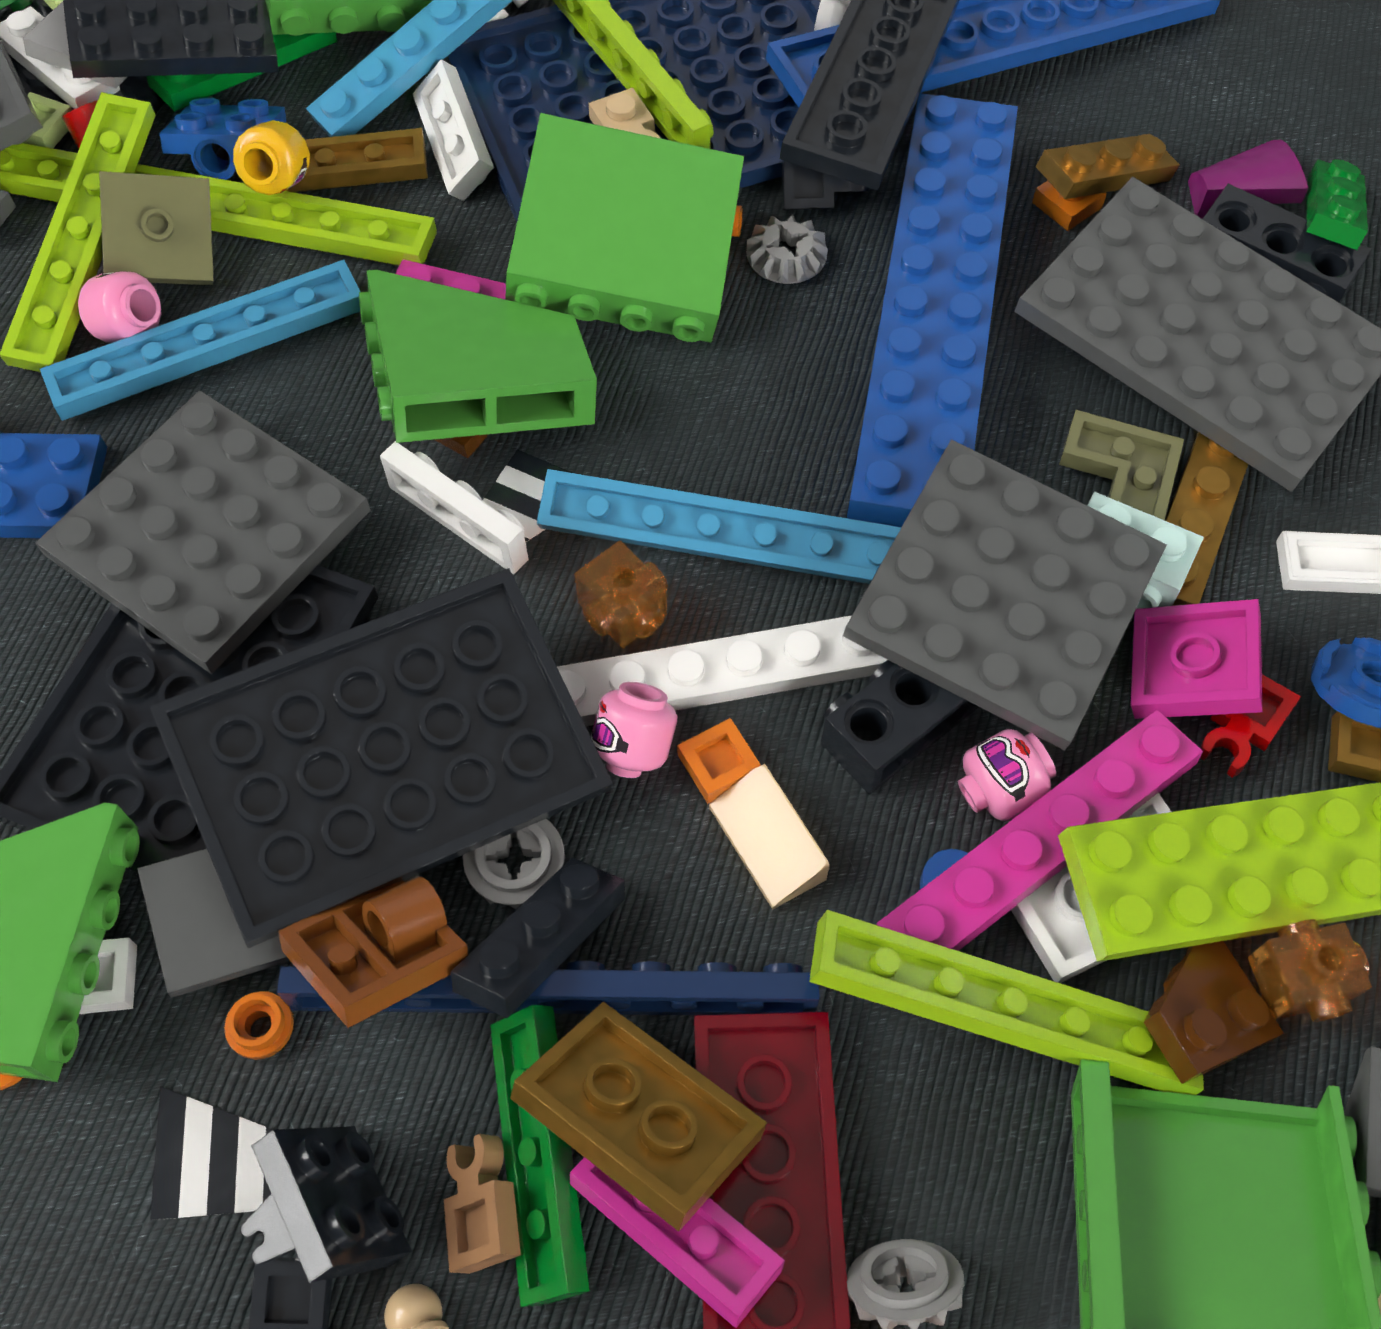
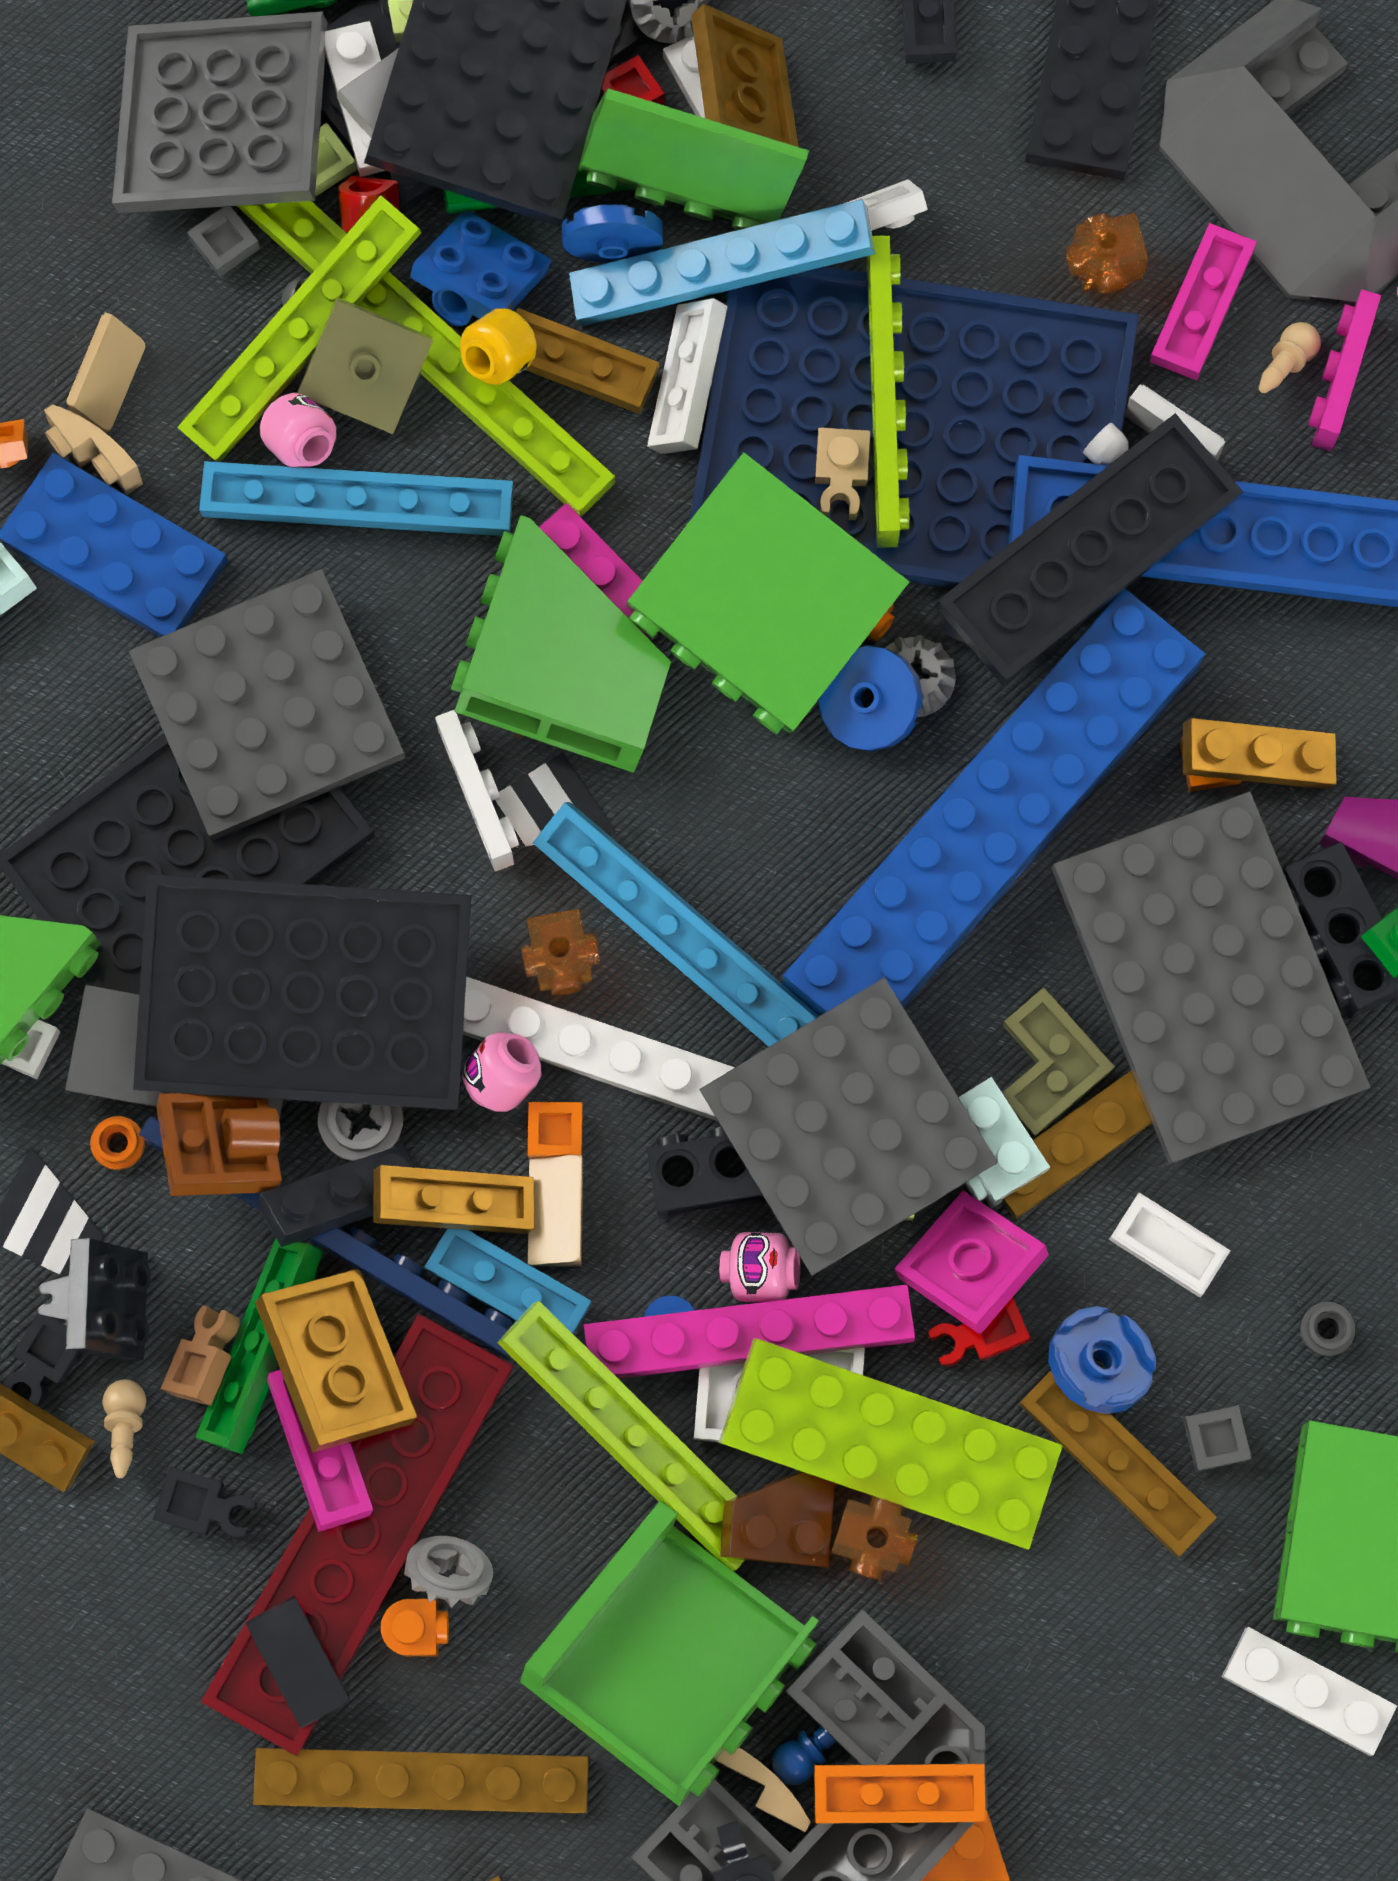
camera: 30 degrees right, 15 degrees up
(323, 49) = (611, 233): none -> blue plate
(659, 875) = (453, 1199): none -> pearl gold plate
(750, 931) = (502, 1279): none -> dark azure plate
(784, 288) = (894, 706): none -> blue plate

